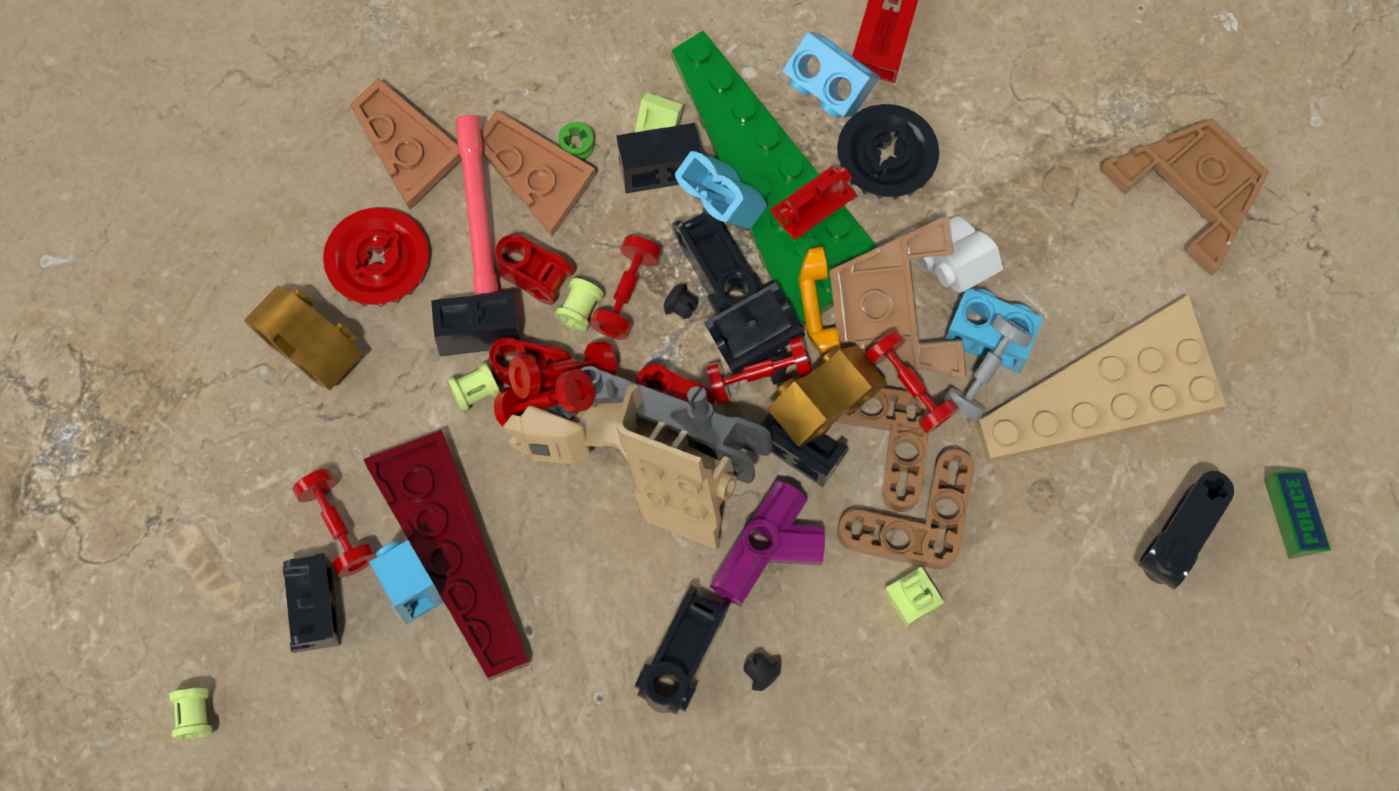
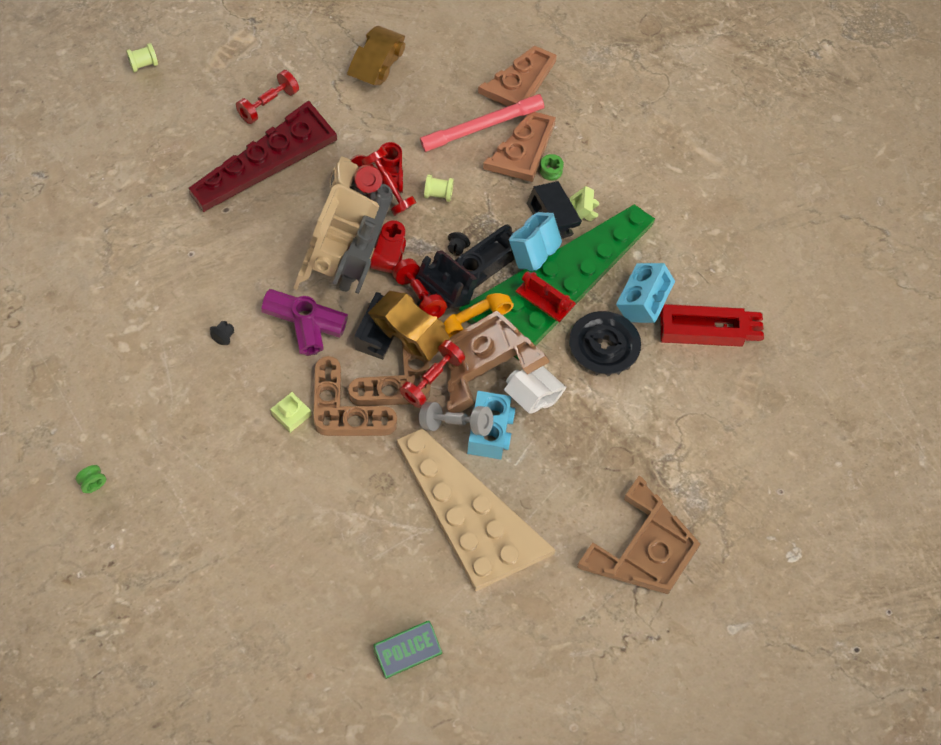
camera: 75 degrees right, 10 degrees down
(311, 603) = (217, 101): black hinge -> none
(375, 230) = (436, 70): red gear -> none
(405, 580) = (234, 129): medium azure brick -> none
(473, 322) = (410, 135): black hinge -> none
(473, 387) = (369, 144): yellowish green bush -> none
(539, 271) = (454, 160): red piece -> none
(640, 252) = (460, 210): red wheel -> none
(683, 651) = (225, 285): black piece -> none
(1187, 530) = (373, 569): black piece -> none

